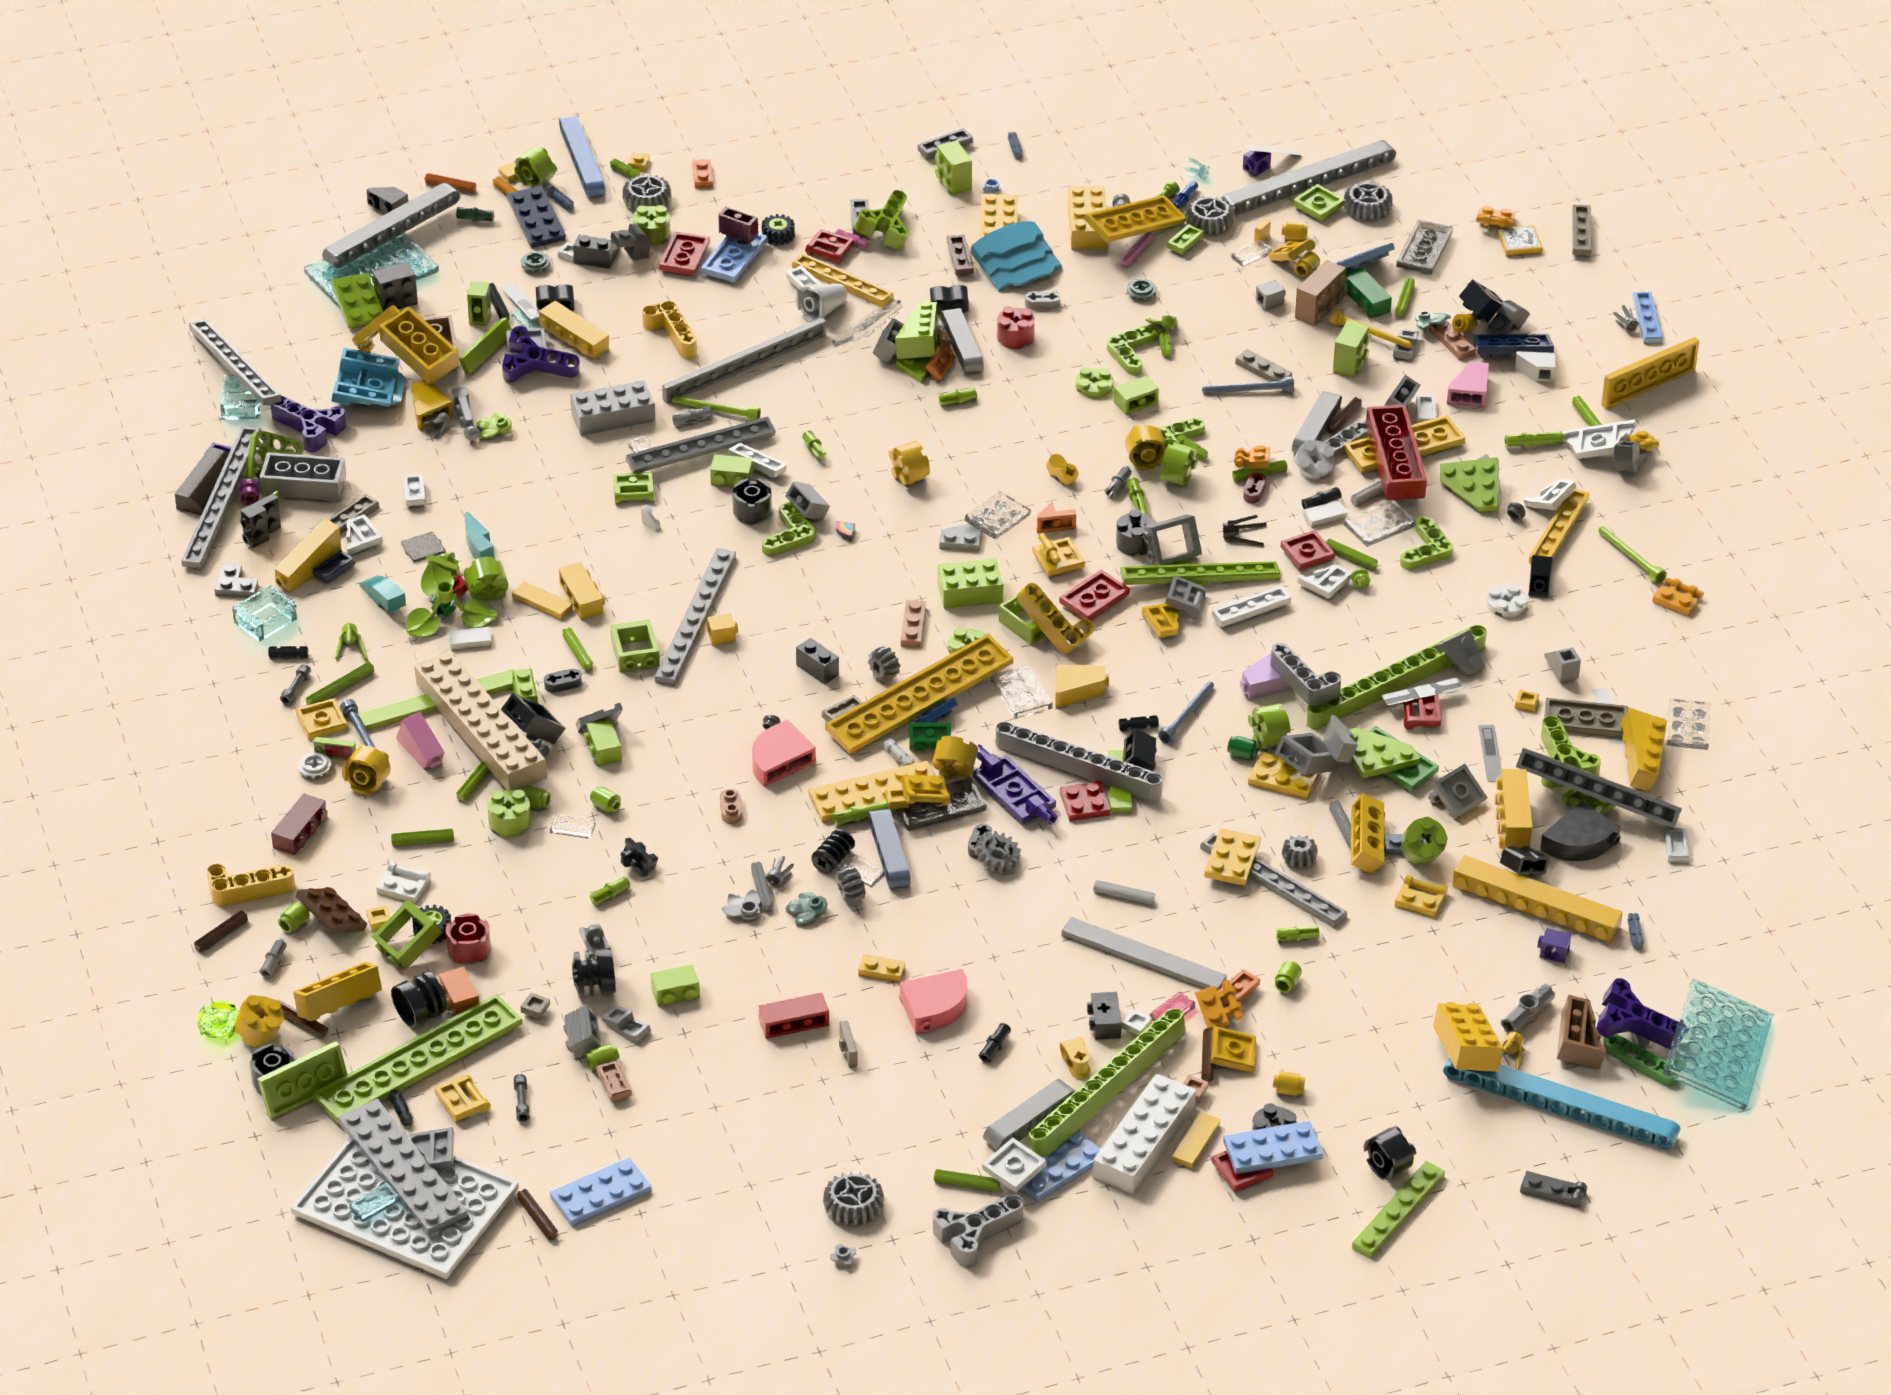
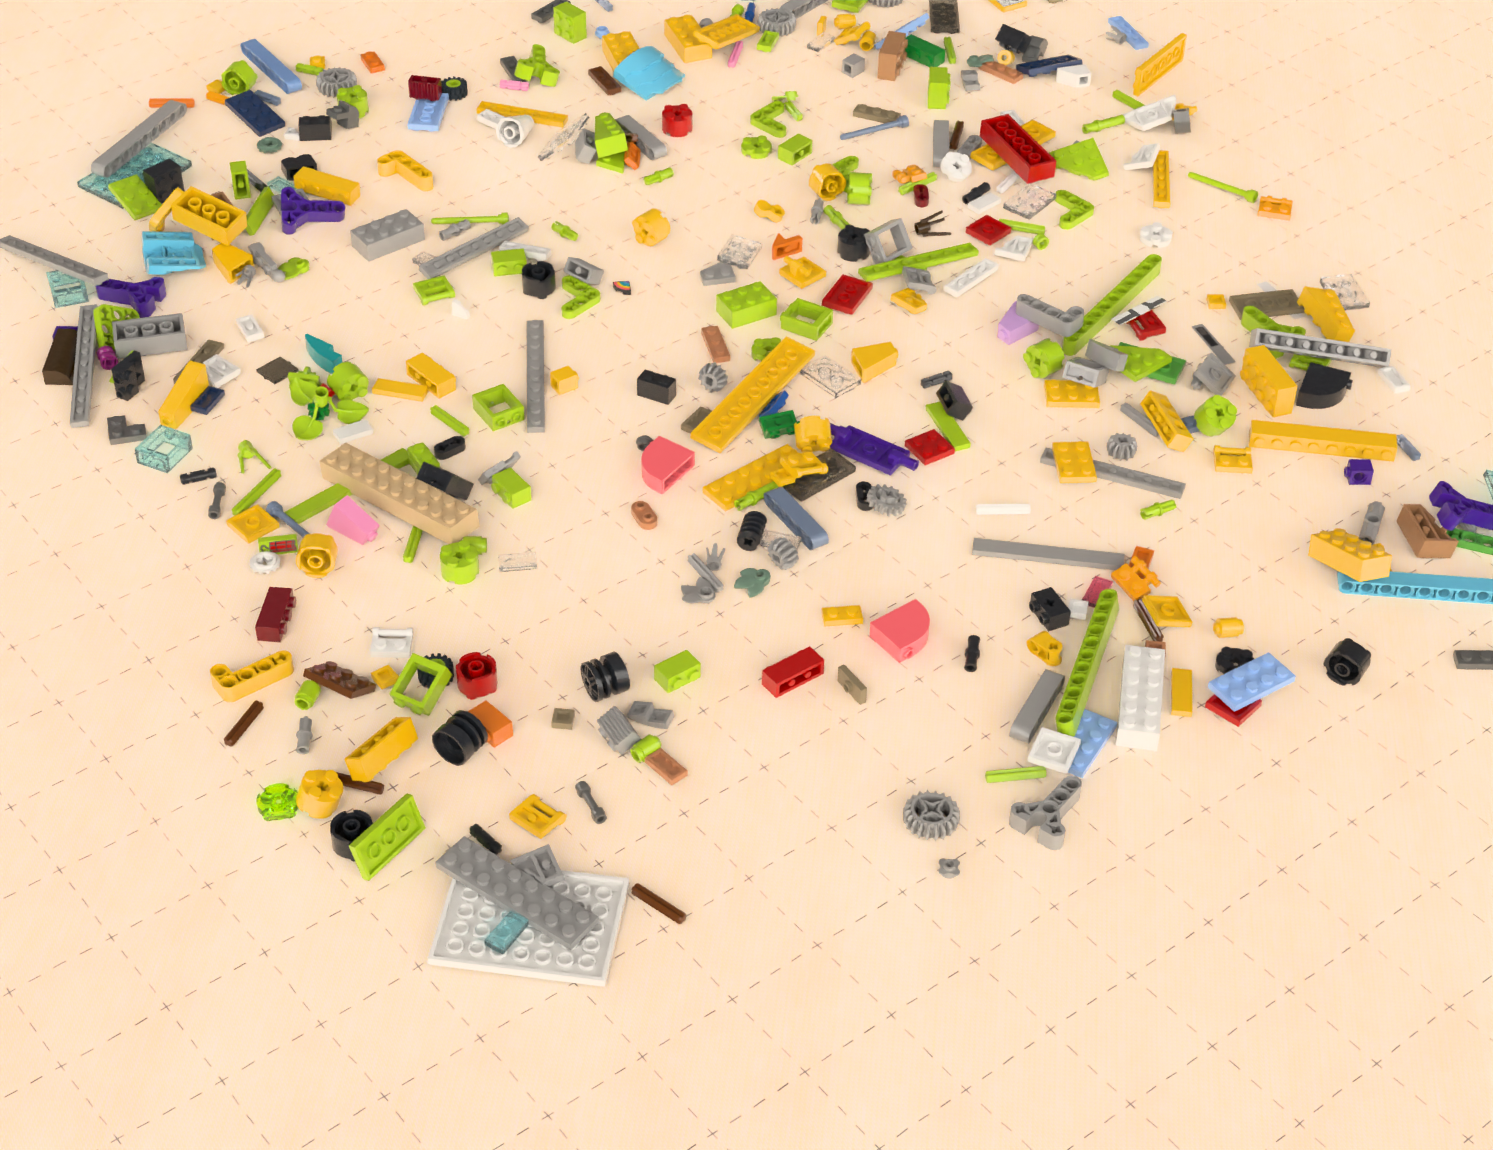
camera: 20 degrees left, 0 degrees up
(384, 592) = (262, 411): teal slope -> none
(386, 198) = (124, 121): slope -> none
(419, 1057) = (478, 792): lime plate -> none
(421, 837) = (390, 600): lime axle -> none
(475, 214) = (203, 120): dark green pin -> none
(521, 301) = (272, 174): sticker -> none
(593, 938) = (587, 648): light grey hips -> none
(600, 1191) = (704, 868): light blue plate -> none
(605, 799) = (536, 533): lime brick -> none
(610, 890) = (578, 606): lime axle -> none
(637, 857) = (588, 573): black hips -> none
(684, 253) = (388, 117): plate -> none
(744, 360) = (475, 182): light grey plate -> none
(829, 241) = (500, 92): red plate -> none
(898, 753) = (759, 443): white axle -> none
(950, 297) = (616, 108): black brick -> none
(1042, 300) = (688, 98): light grey beam -> none
(1065, 631) = (831, 316): yellow beam -> none
(1078, 760) = (909, 416): light grey beam -> none
(1148, 289) = (754, 79): sand green gear -> none
(1169, 733) = (965, 381): sand blue piece -> none
(1243, 747) = (1029, 379): green brick -> none
(1287, 976) = (1173, 543): lime brick -> none
(1339, 318) = (912, 72): yellow piece -> none
(1398, 1209) = (1375, 708): lime plate -> none
(1403, 392) = (994, 108): light grey brick -> none
(1463, 652) = (1153, 275): light grey wing -> none
(1469, 386) = (1037, 97): bright pink slope -> none
(1516, 511) = (1123, 173): dark grey plate -> none
(1524, 860) = (1297, 413): black brick -> none
(1540, 575) = (1170, 212): black slope -> none
(1564, 664) = (1229, 268): light grey slope -> none

